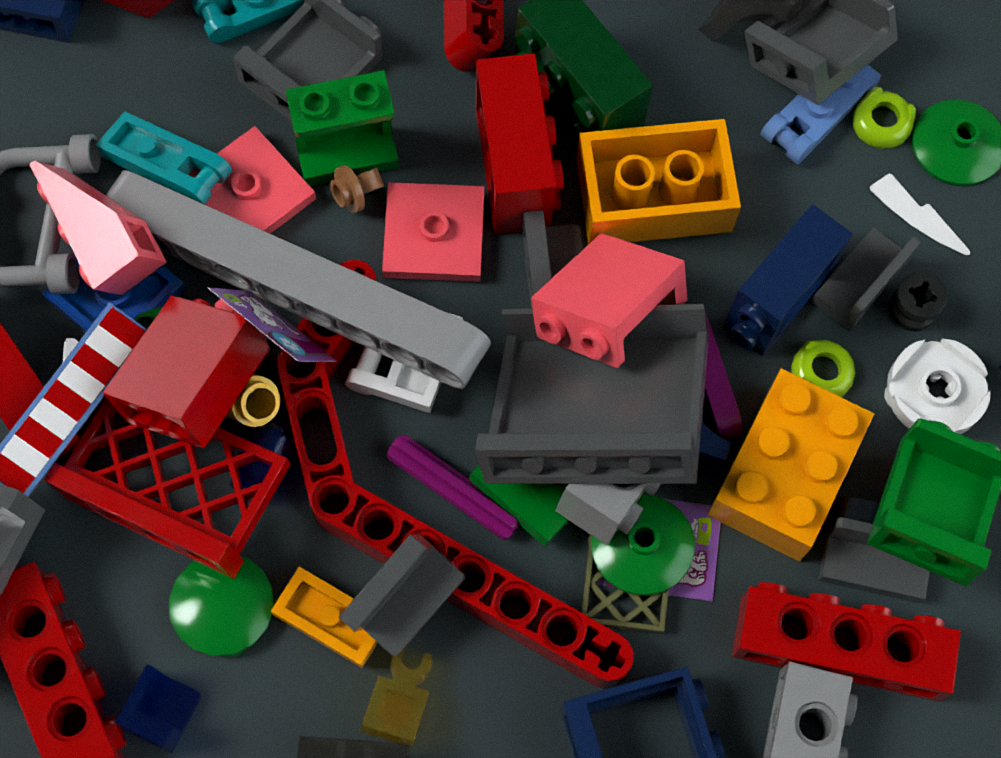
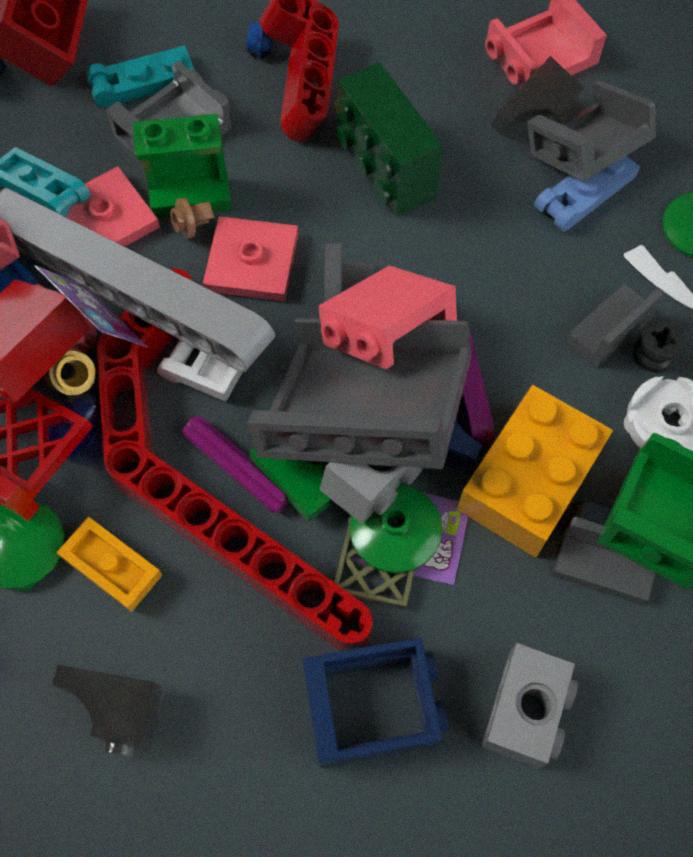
camera: 10 degrees right, 5 degrees down
(397, 703) = (157, 646): clear yellow plate -> none
(403, 594) = (169, 545): dark grey panel -> none
(516, 141) = (326, 187): red brick -> none
(658, 181) = (444, 229): light orange brick -> none
(786, 280) = (544, 314): dark blue window -> none
(812, 349) = (565, 377): lime piece -> none
(880, 136) = (634, 214): lime piece -> none
(929, 644) = (650, 642): red brick -> none

